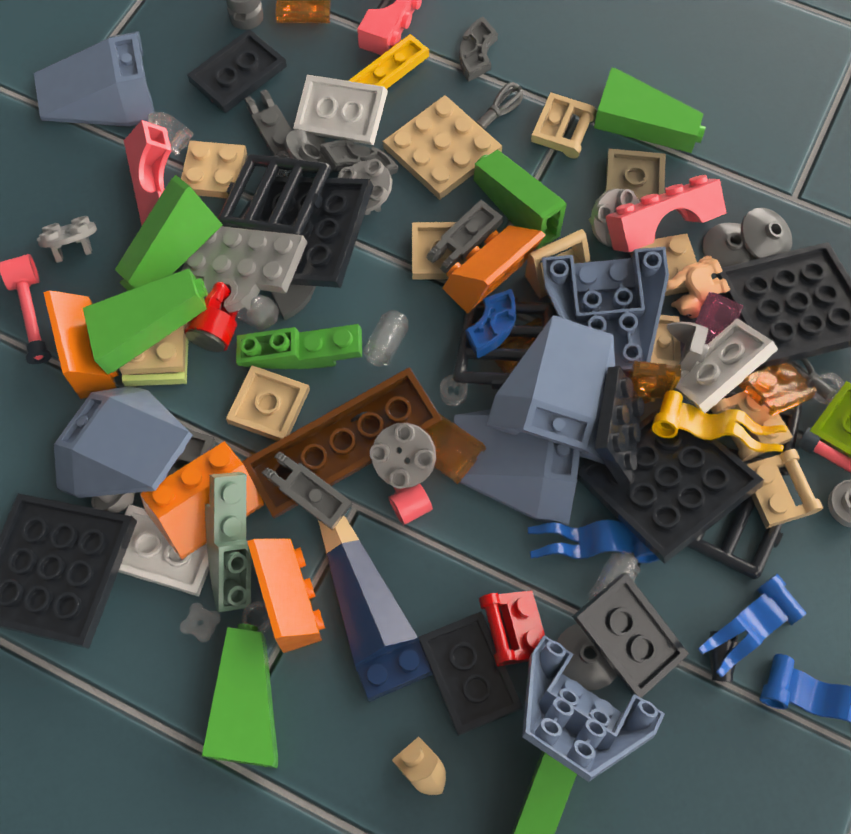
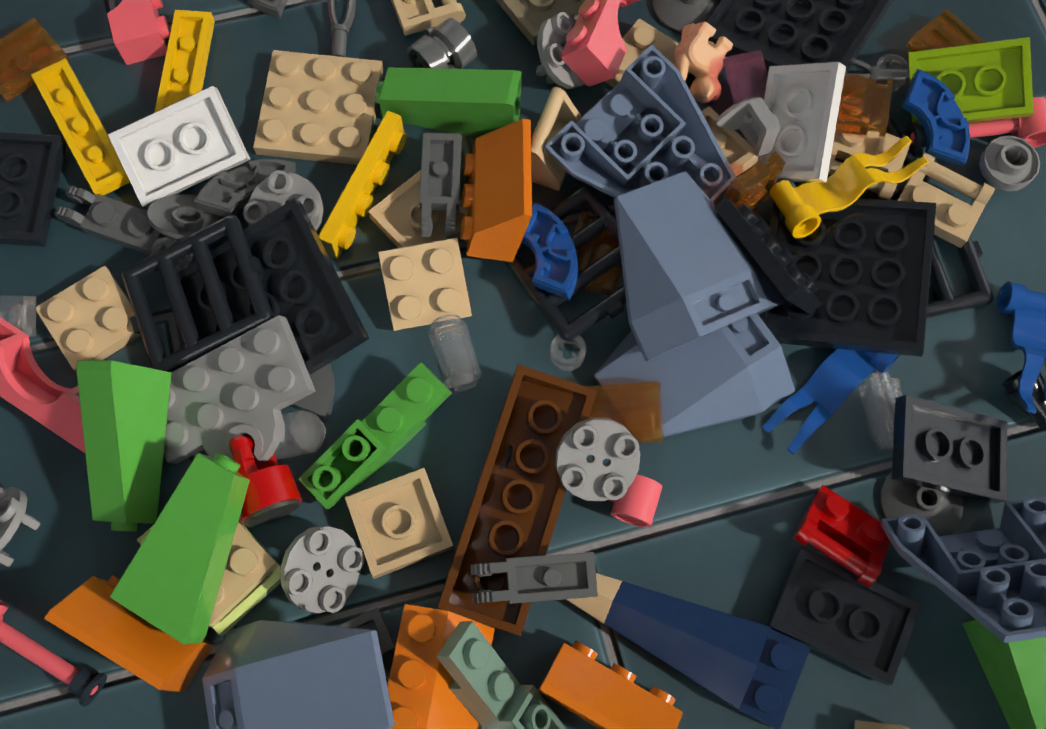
camera: 45 degrees left, 5 degrees up
(189, 397) = (331, 551): none -> light grey plate
(300, 61) = (81, 127): none -> yellow plate
(405, 286) = (424, 283): none -> tan plate
(422, 206) = (357, 196): none -> yellow plate
(543, 164) = (446, 48): none -> dark grey wheel
(828, 437) = (940, 116): none -> blue tile

